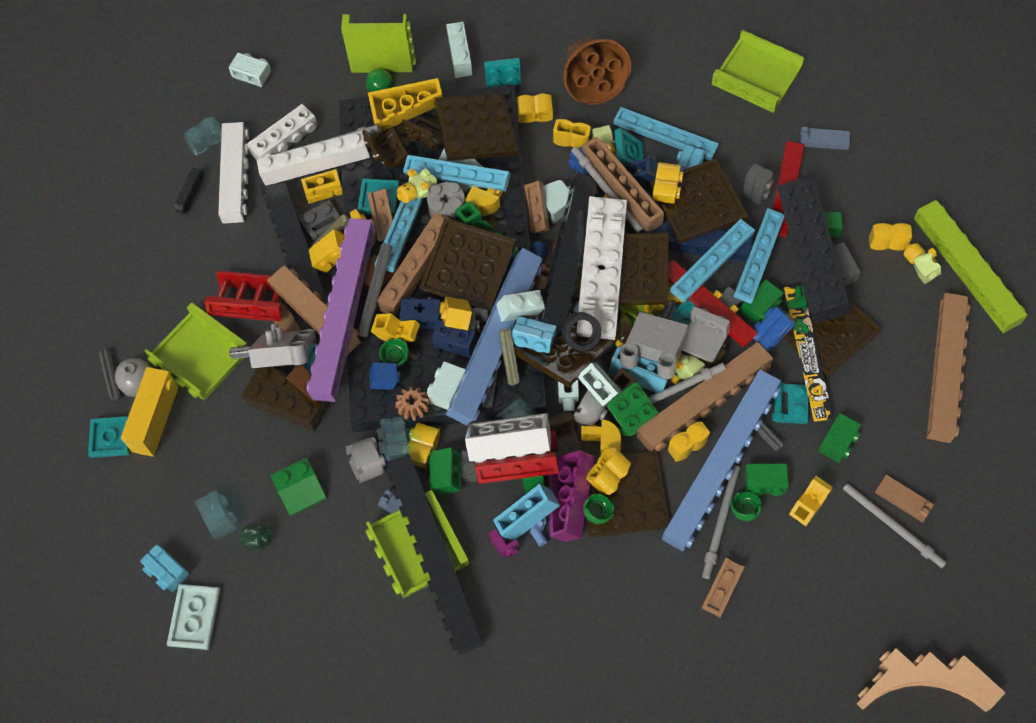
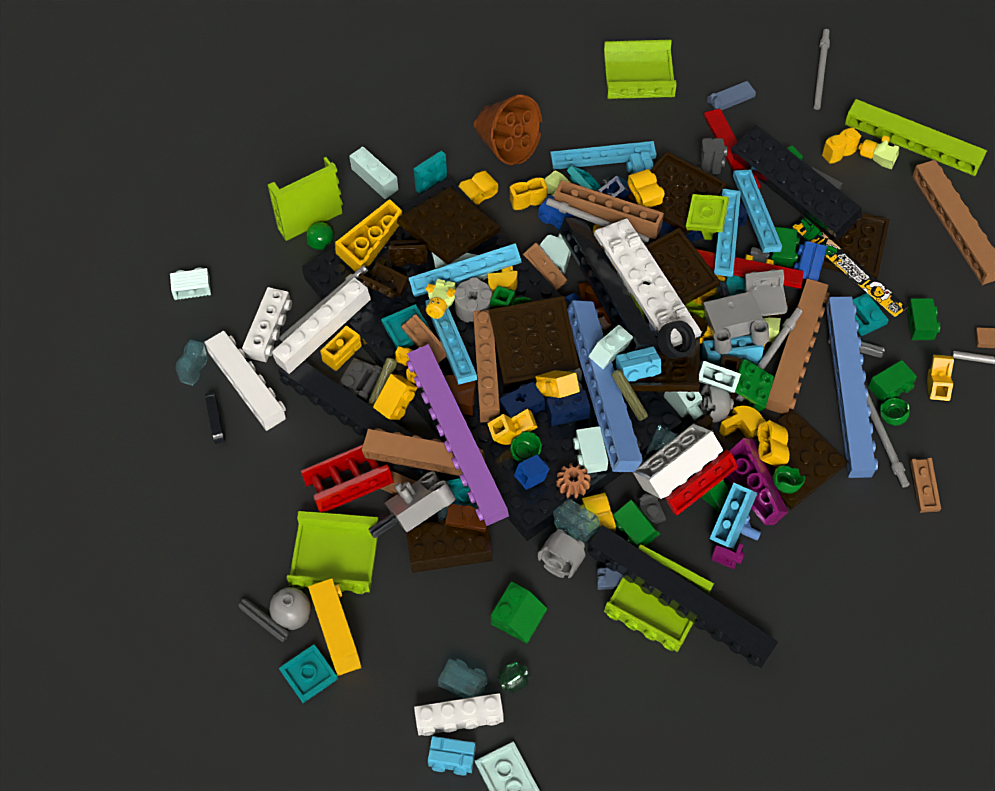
camera: 35 degrees left, 5 degrees down
(192, 539) = (459, 714): none -> white brick
(374, 290) = (472, 402): dark grey axle -> none
(685, 442) = (812, 386): yellow brick -> none
(703, 234) = (707, 214): none -> lime bracket
(951, 133) = (824, 45): none -> light grey bar

